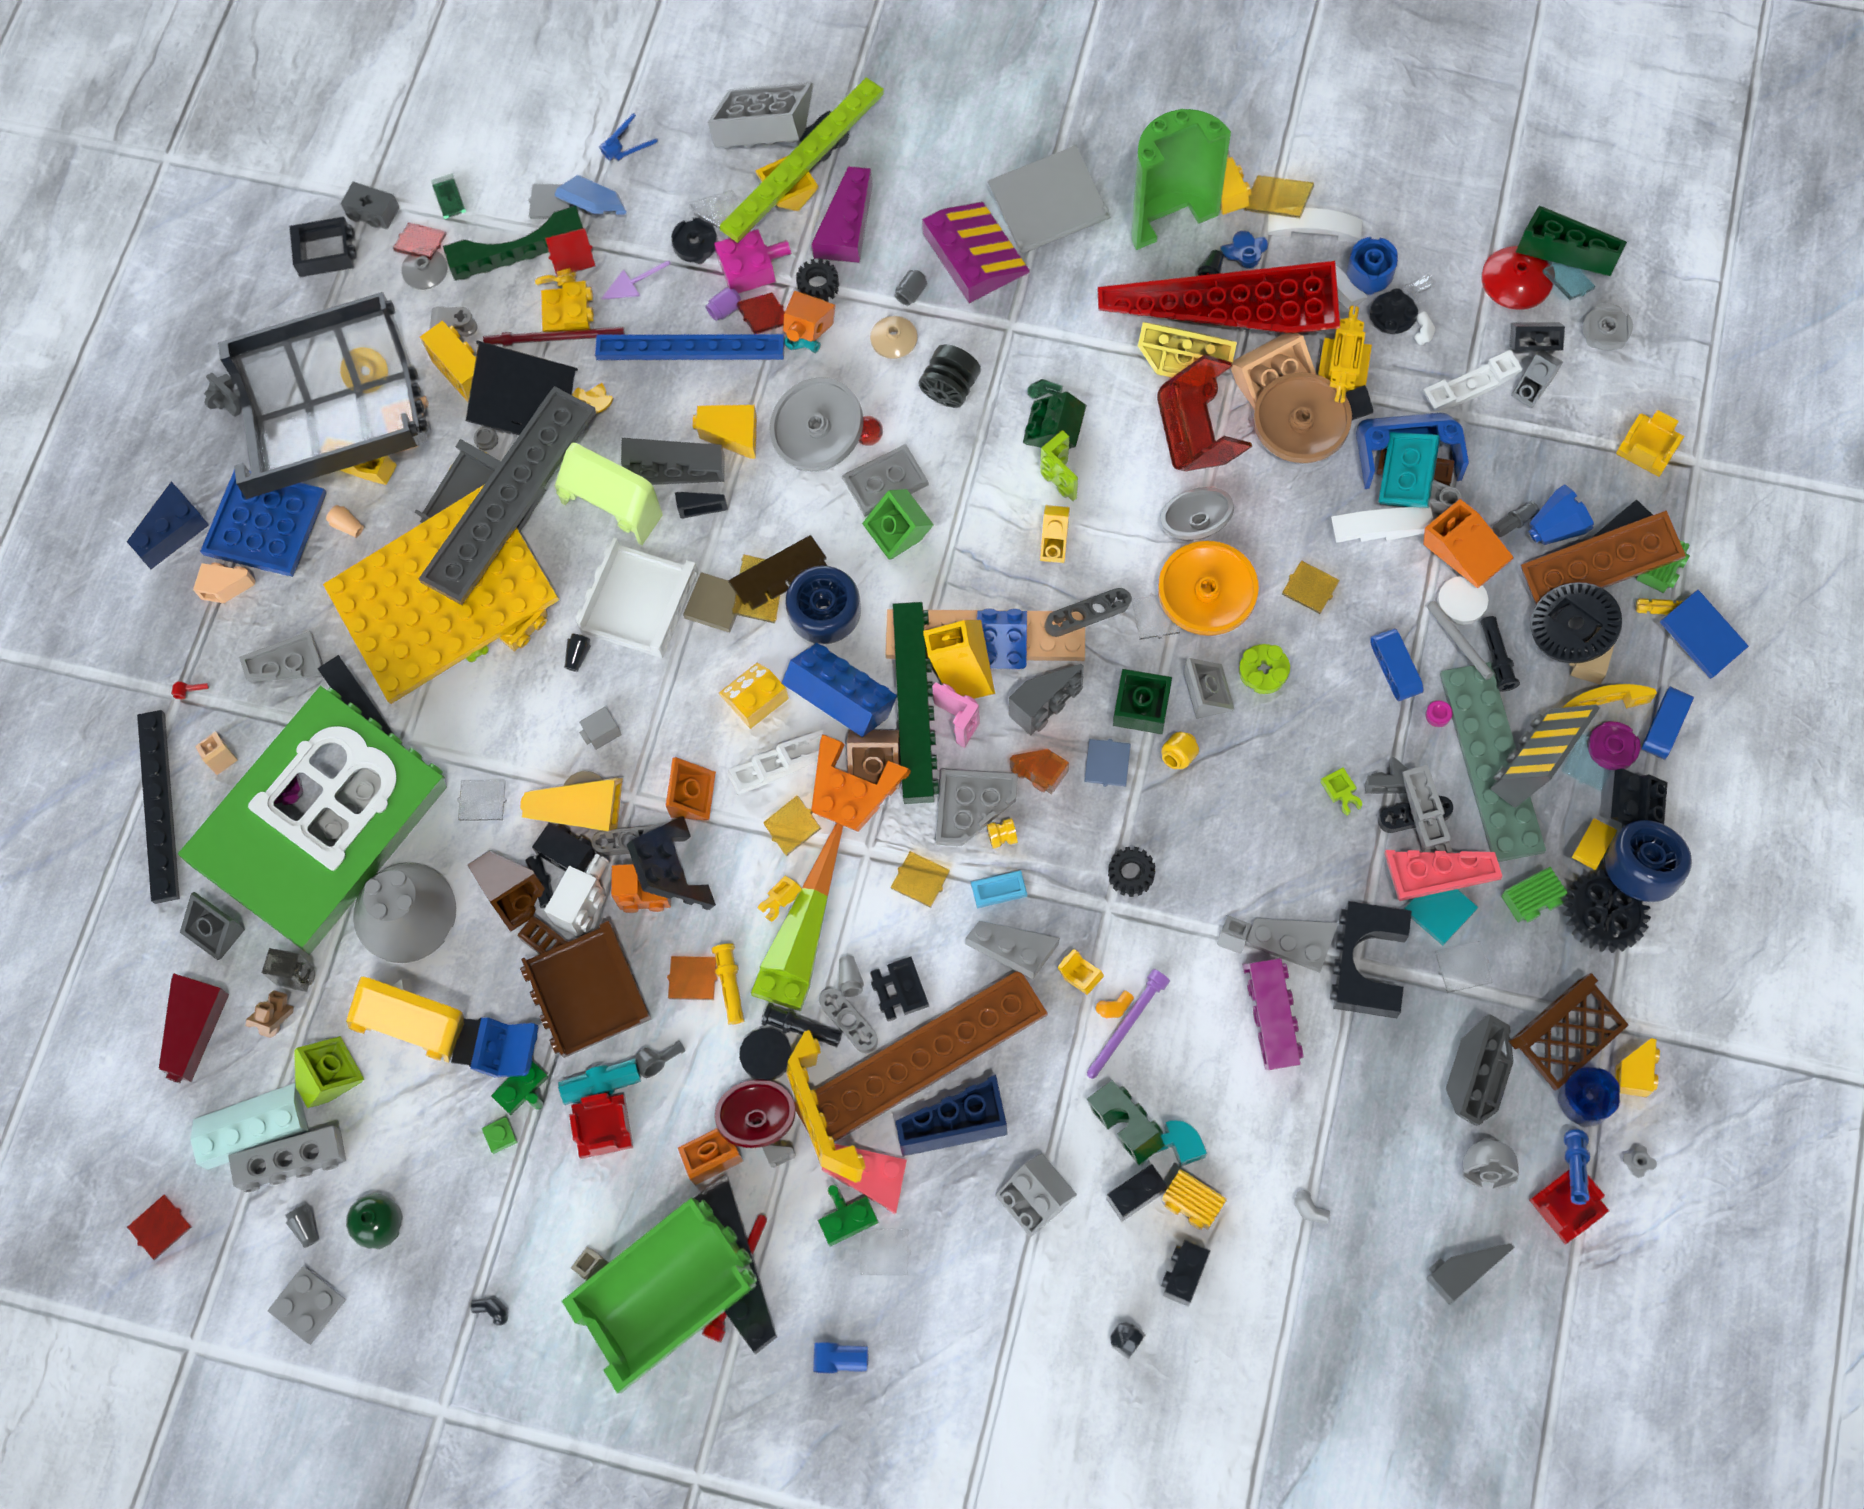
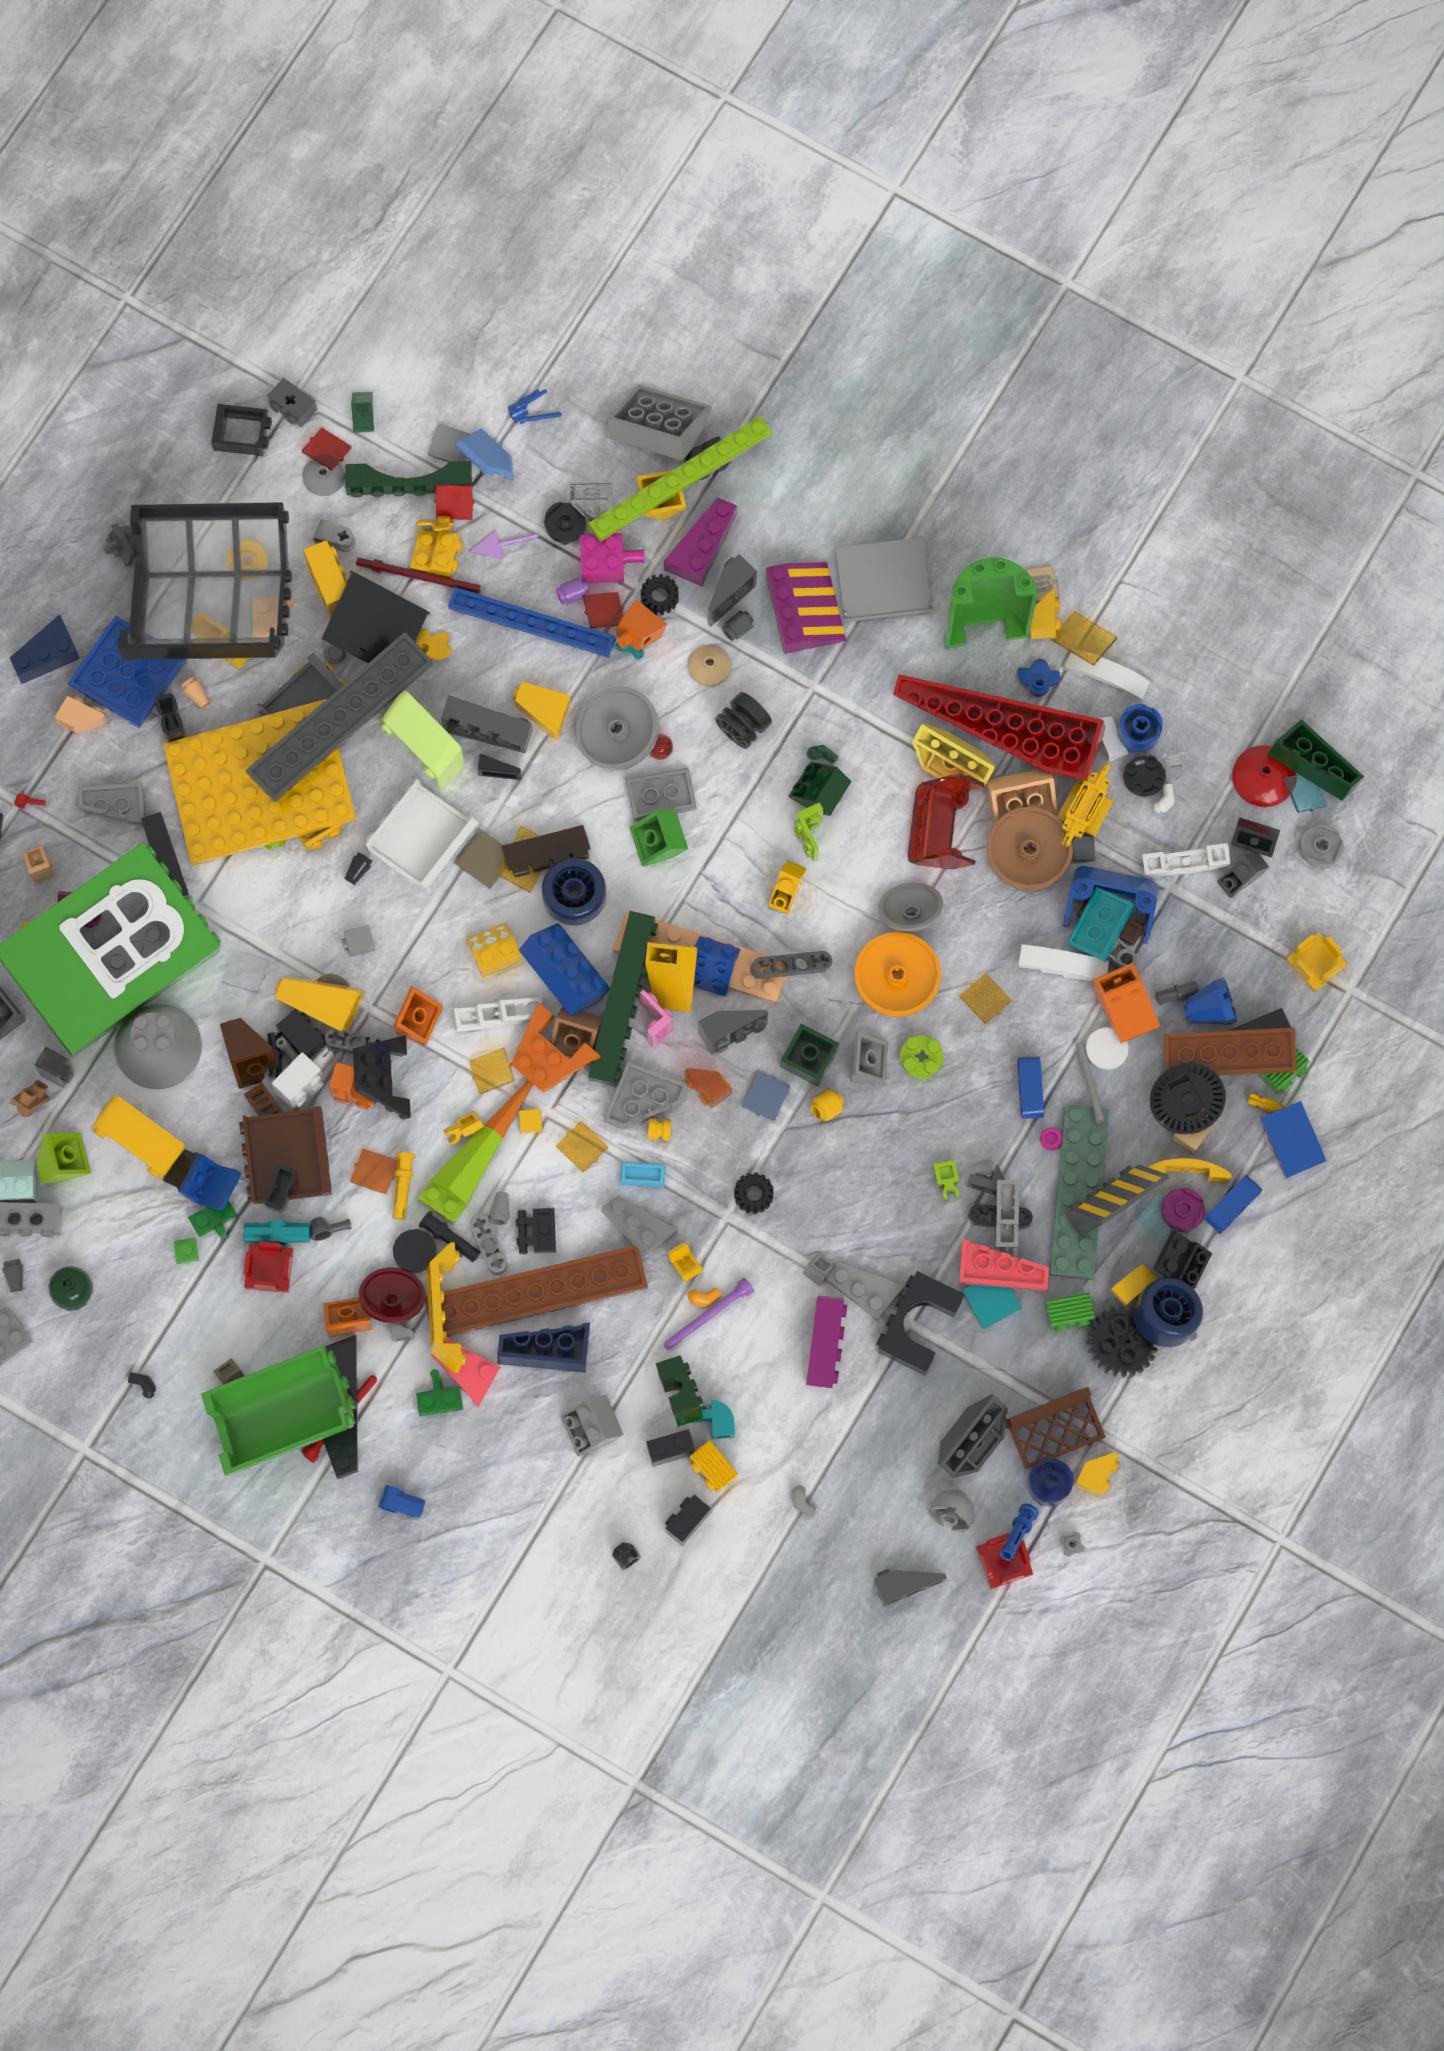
camera: 10 degrees right, 5 degrees up
(322, 553) = (170, 717): none -> black brick
(551, 869) = (288, 1049): none -> light grey arm
(590, 1021) = (278, 1194): none -> black brick
(853, 868) = (530, 1121): none -> yellow tile
(894, 248) = (734, 584): none -> dark grey slope
(1212, 264) = (1003, 685): black cone -> none
(1501, 663) = (1117, 1113): black pin -> none

